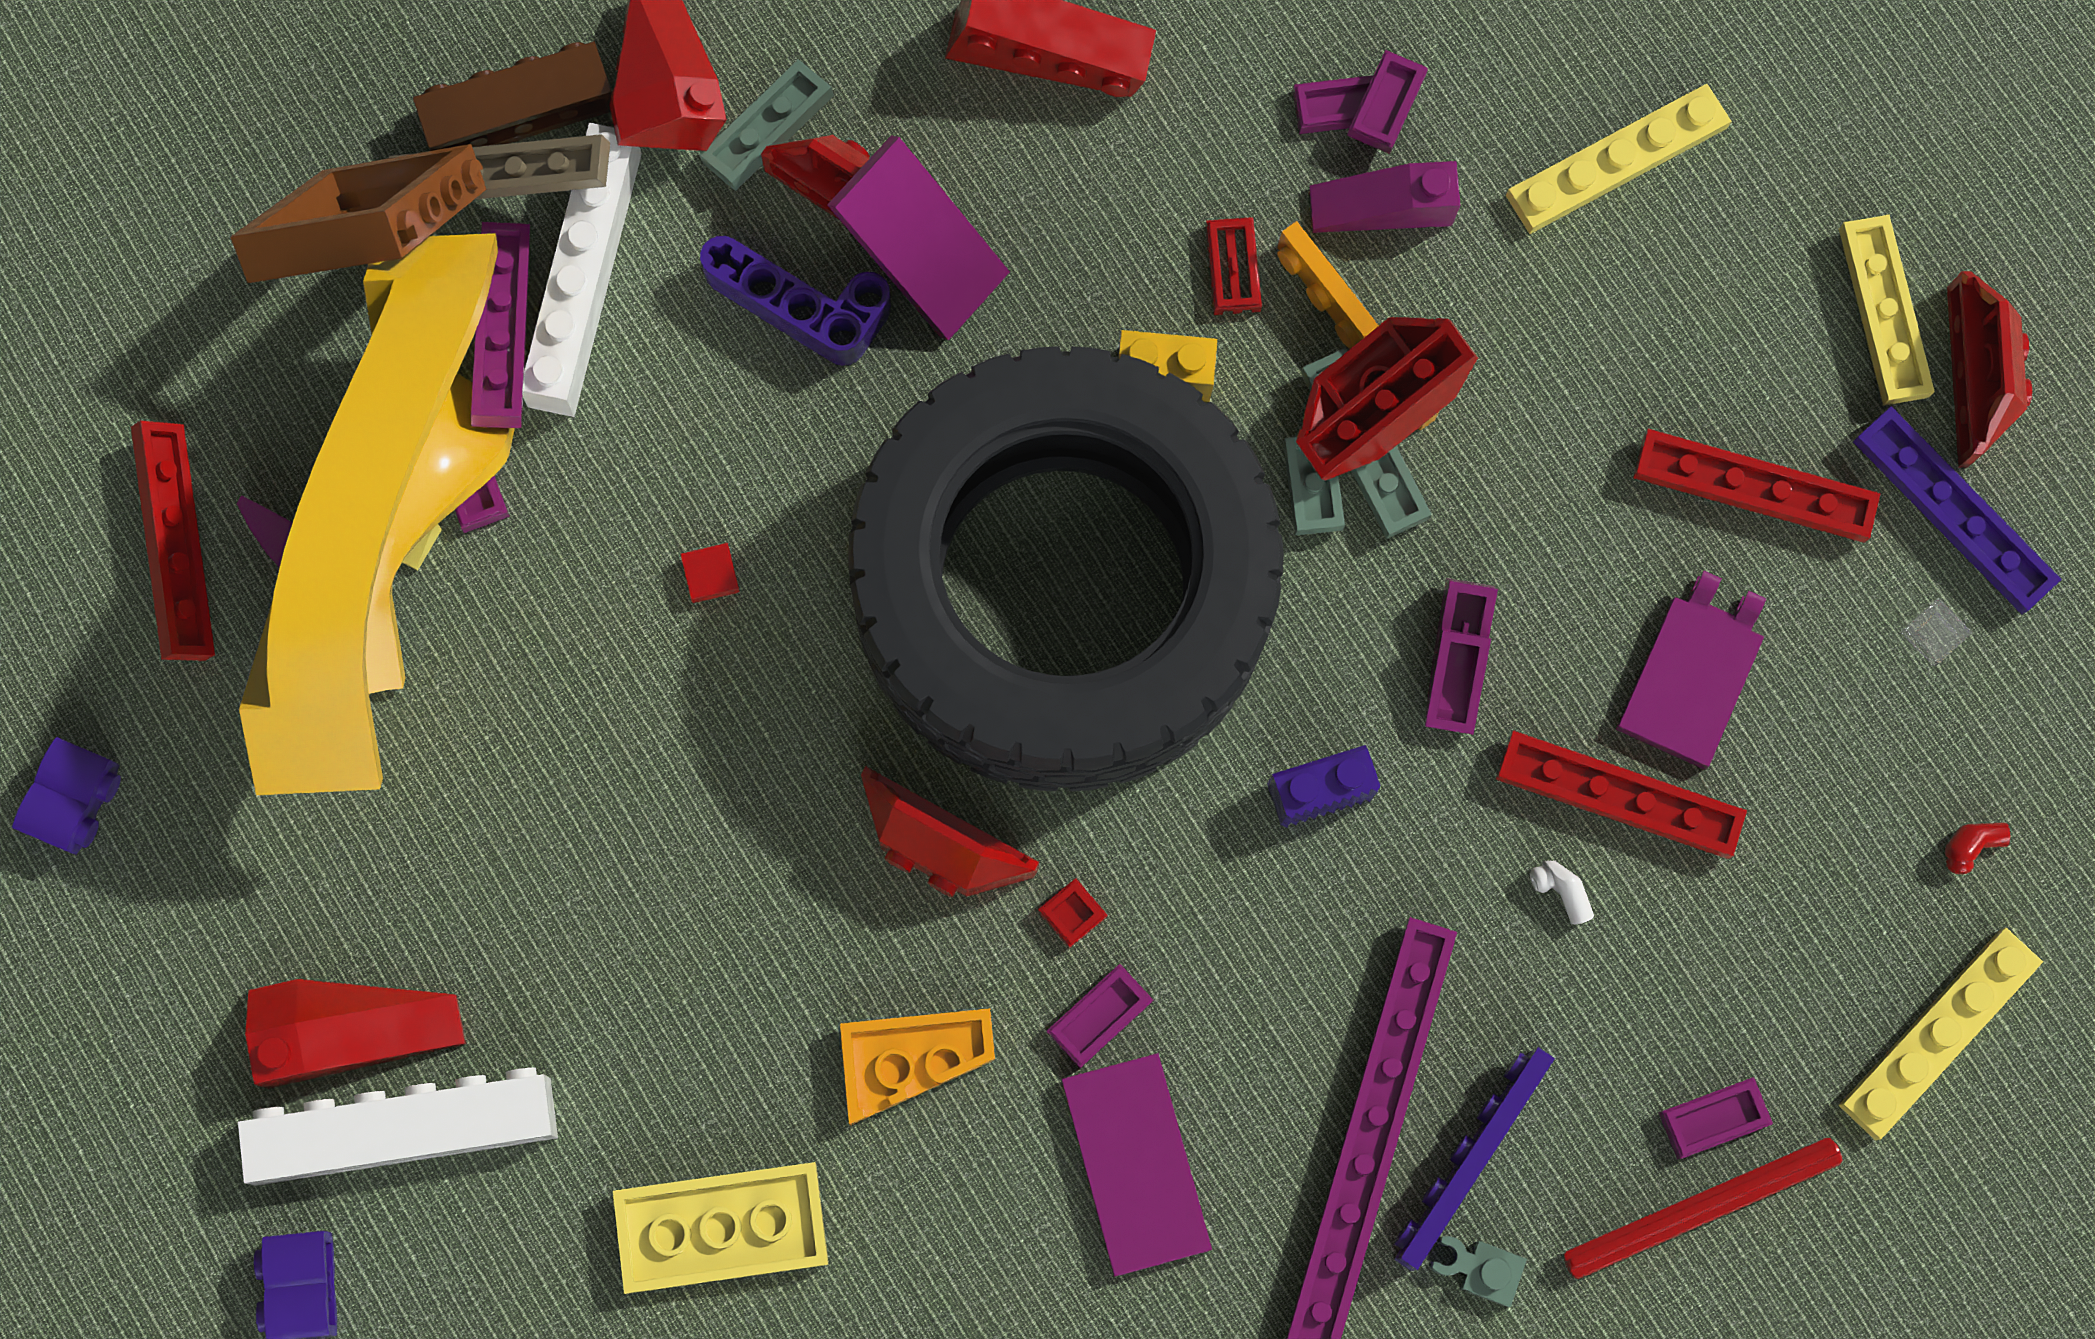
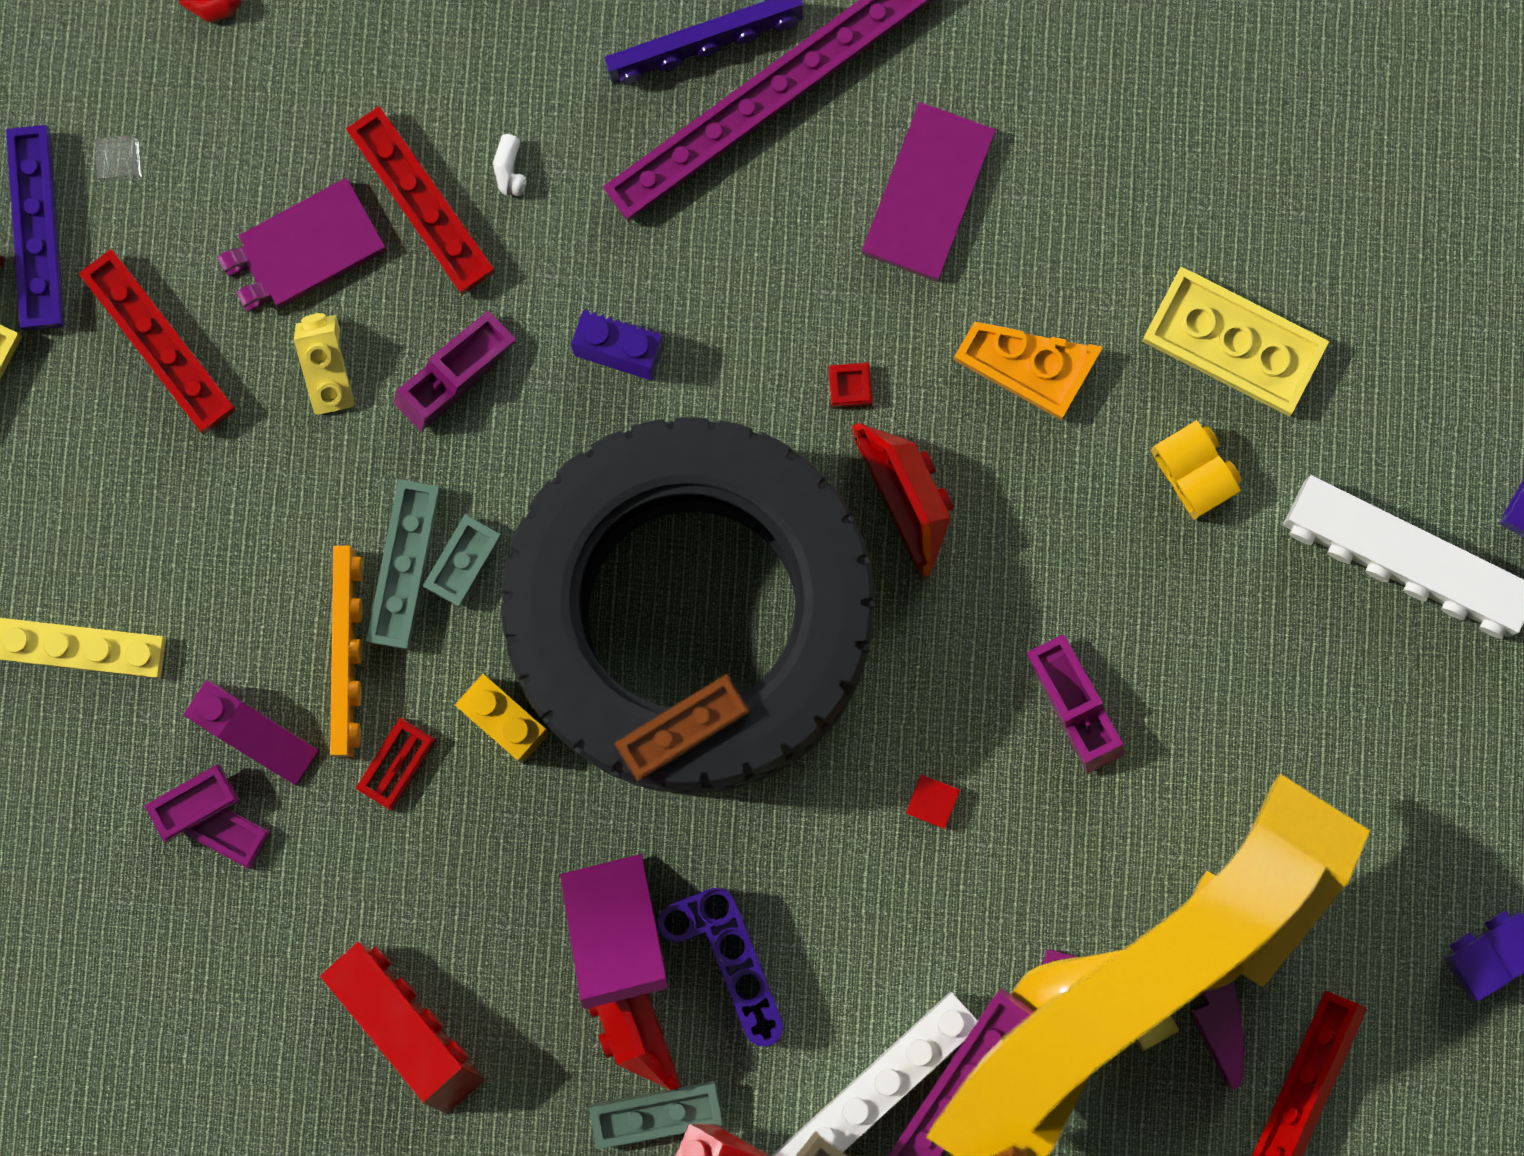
camera: 130 degrees left, 5 degrees up
(329, 1028) = (1414, 661): red wedge -> none
(636, 756) = (1076, 704): none -> magenta slope
(670, 1066) = (1196, 469): none -> yellow brick
(981, 426) = (682, 727): none -> dark orange tile
(1099, 1016) = (881, 304): magenta tile -> none
(1382, 392) = (372, 579): red wedge -> none
(1592, 572) = (322, 363): none -> light yellow bracket

